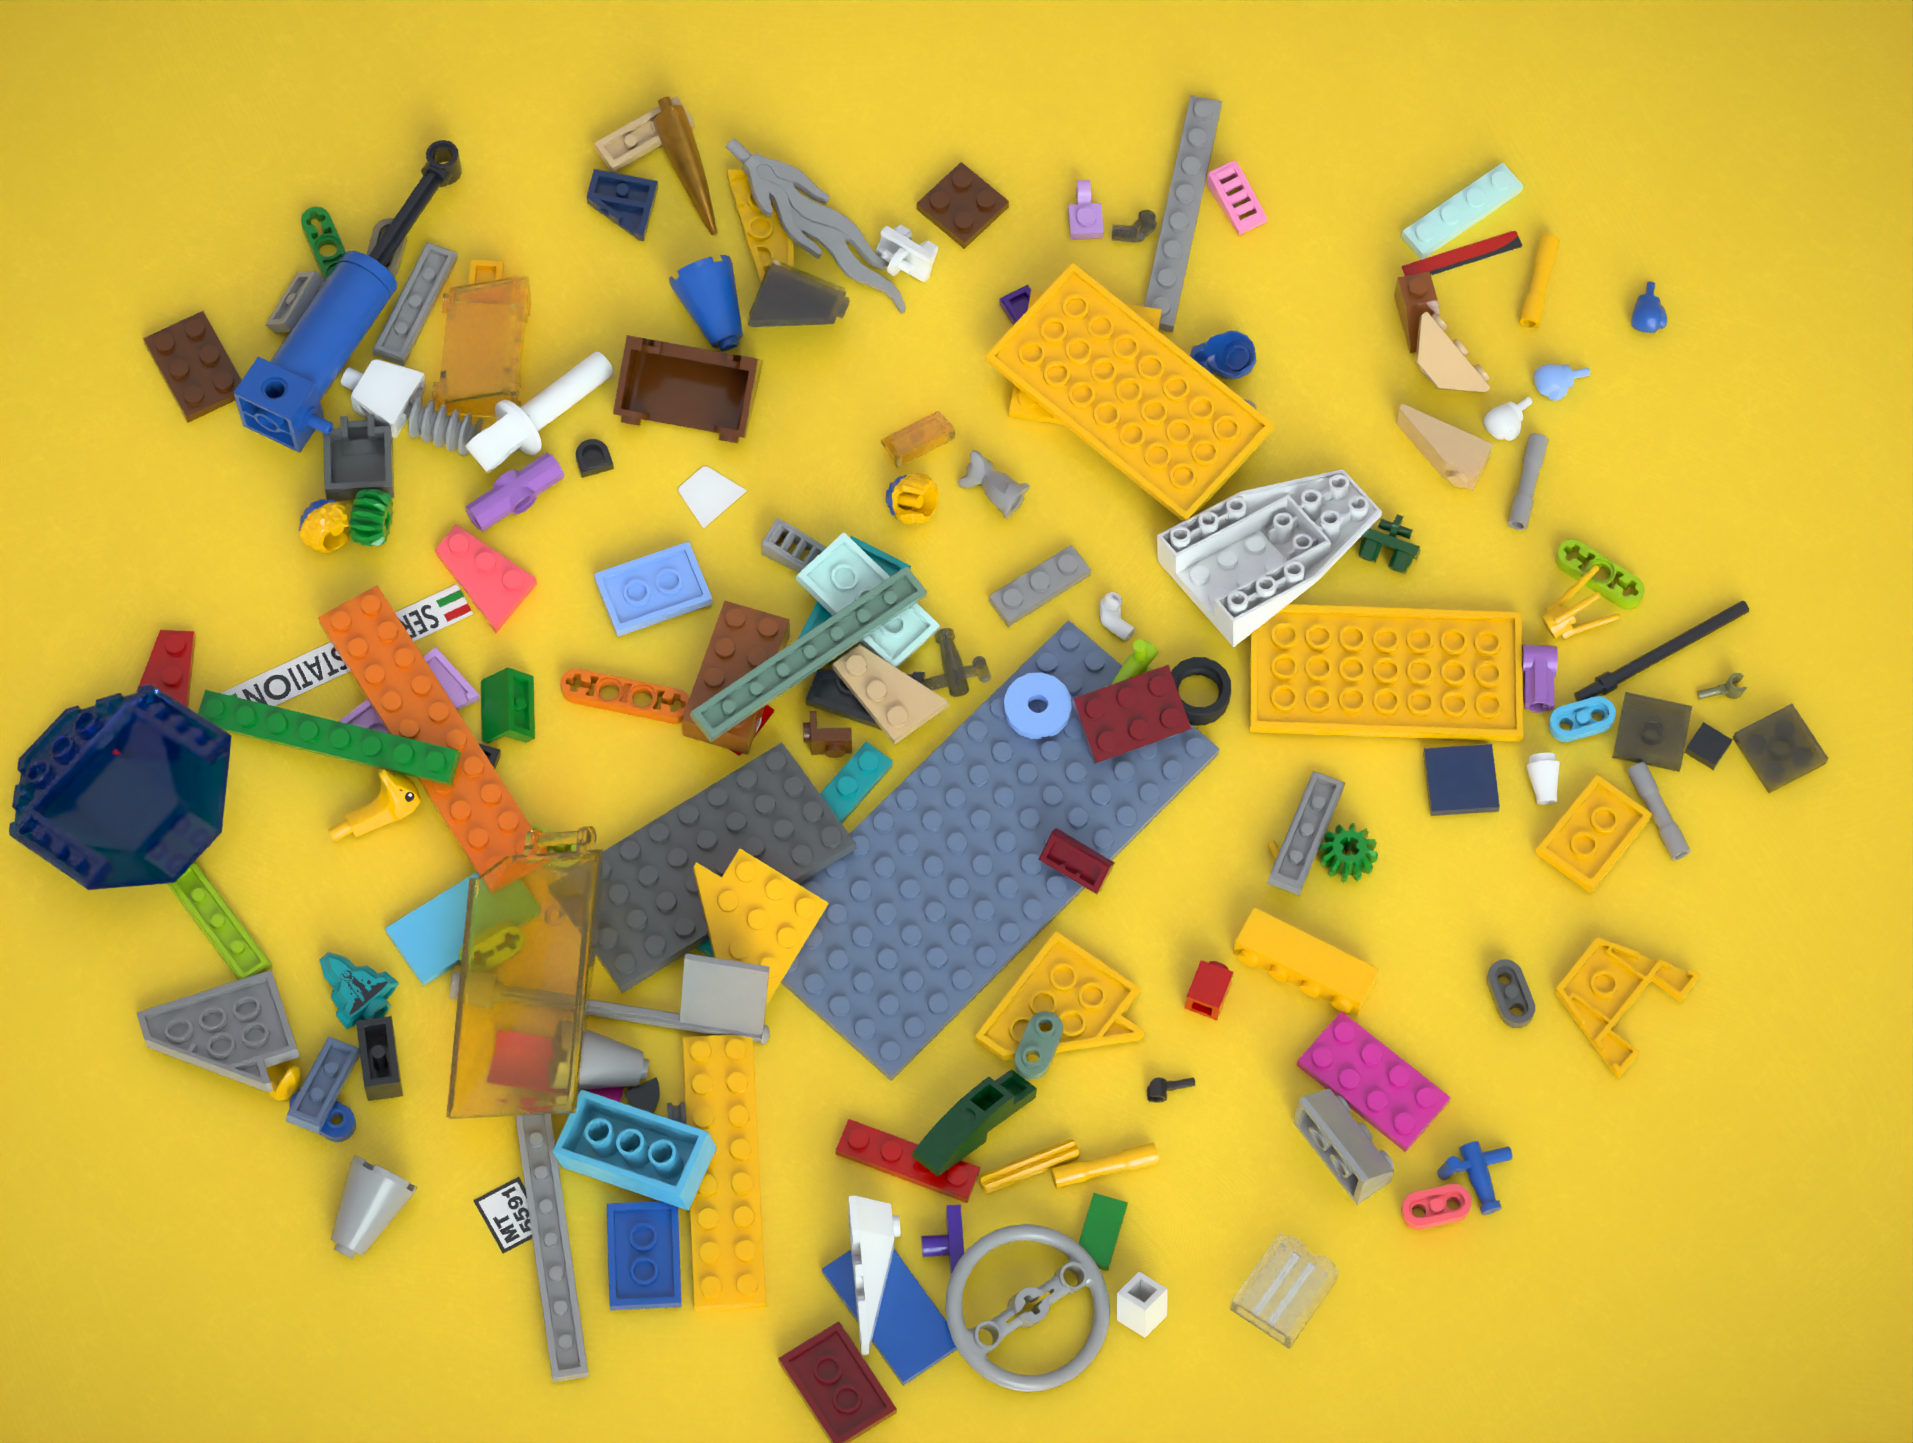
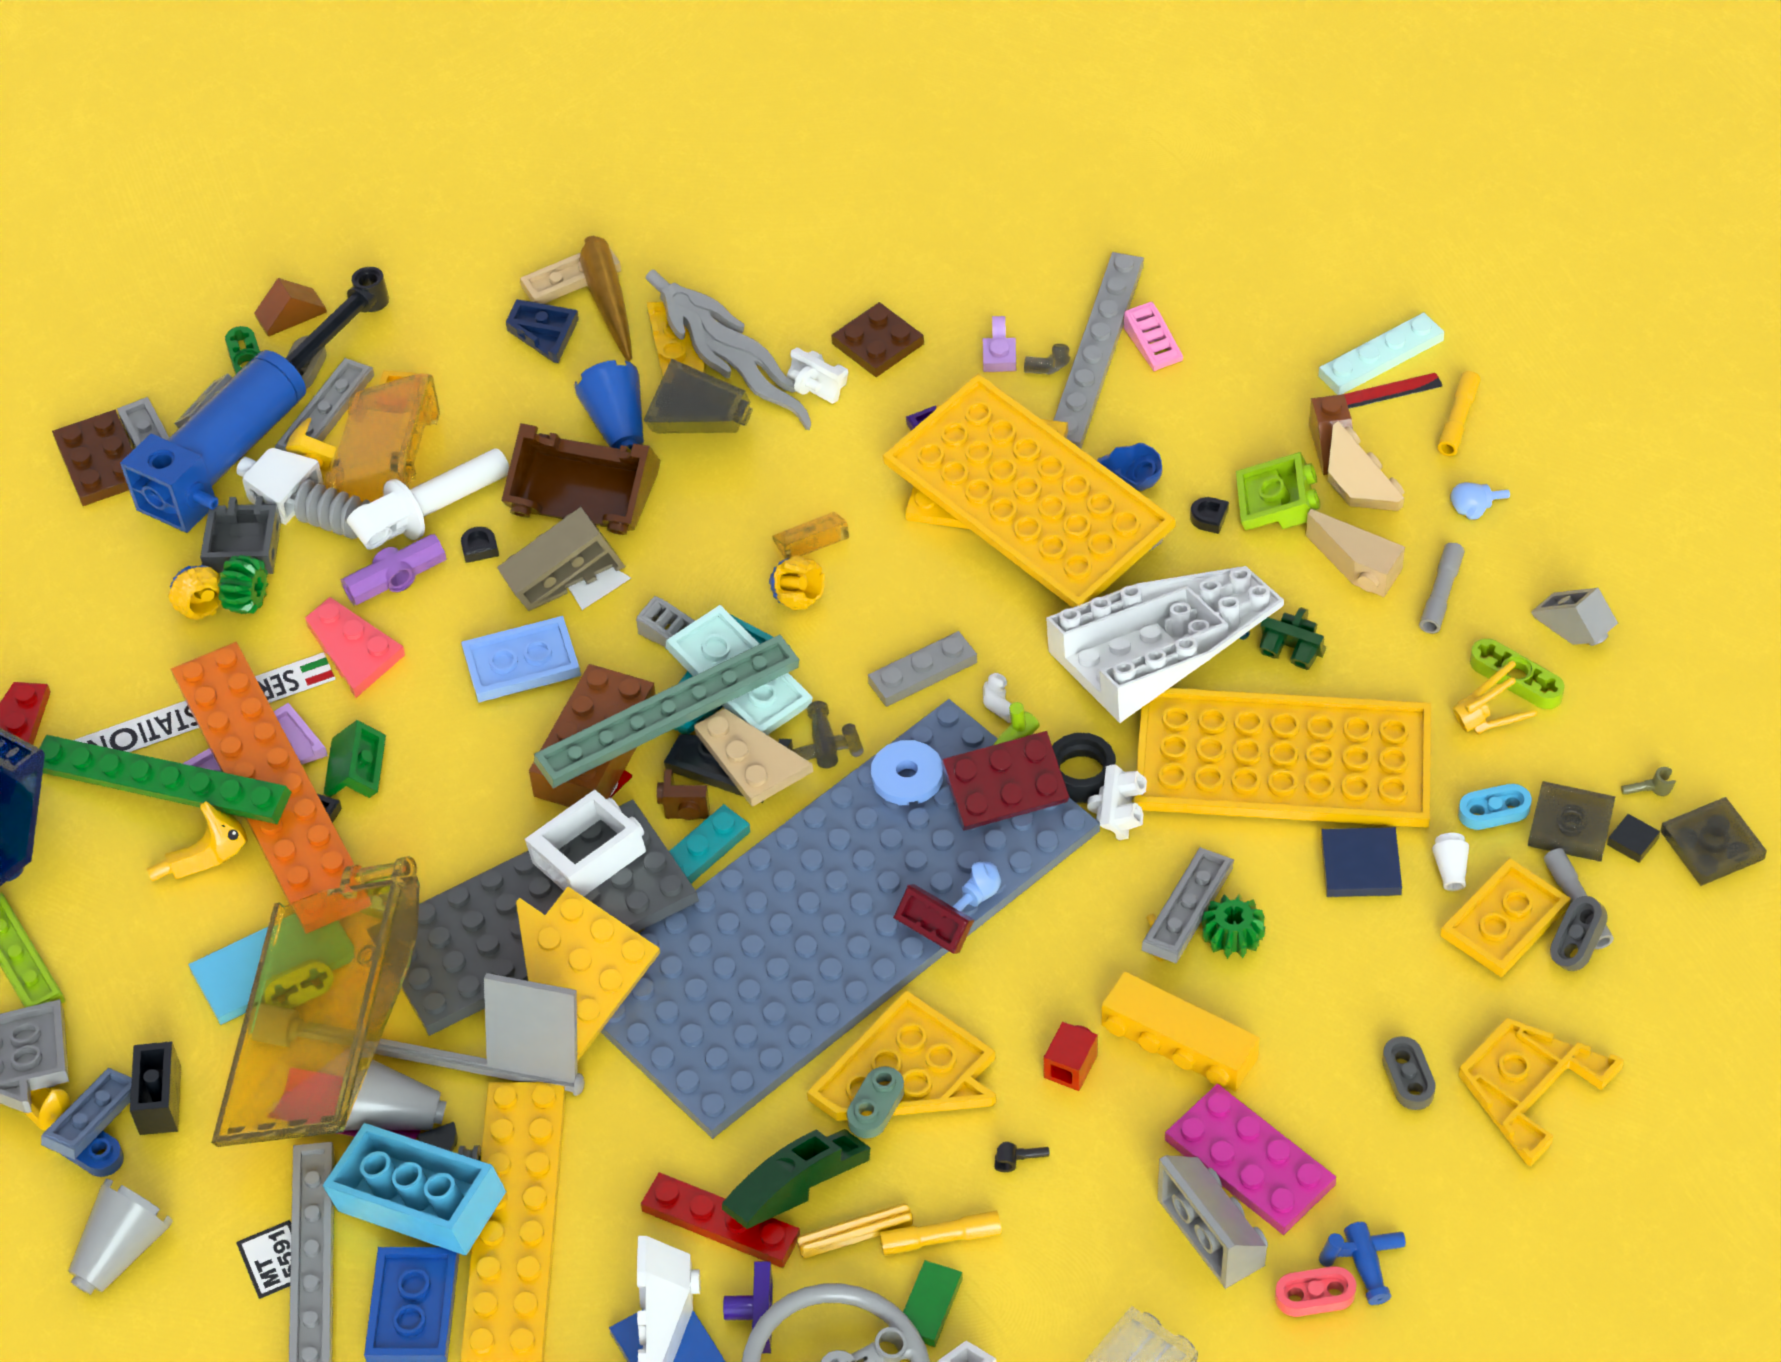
camera: 10 degrees right, 15 degrees down
(237, 332) = (141, 420): none -> light grey plate
(357, 990) = (147, 1019): teal rock -> none
(358, 180) = (288, 306): none -> dark orange slope
(409, 357) = (310, 447): none -> yellow plate
(624, 701) = (475, 762): orange beam -> none
(677, 480) = (558, 559): none -> dark tan wedge
(767, 819) = (598, 865): none -> white window
(998, 486) = (887, 576): light grey animal -> none
(1118, 823) = (981, 886): none -> light blue piece
(1232, 729) = (1114, 801): none -> white hips
(1302, 403) = (1209, 514): none -> black tile
(1367, 381) = (1277, 492): none -> lime plate
(1506, 419) = (1420, 532): white piece -> none
(1539, 669) = (1448, 764): medium lavender piece -> none
(1608, 681) = (1524, 773): black bar -> none
(1648, 312) = (1572, 443): blue piece -> none
(1654, 511) = (1577, 616): none -> light grey slope
(1657, 848) = (1575, 933): none -> dark grey plate

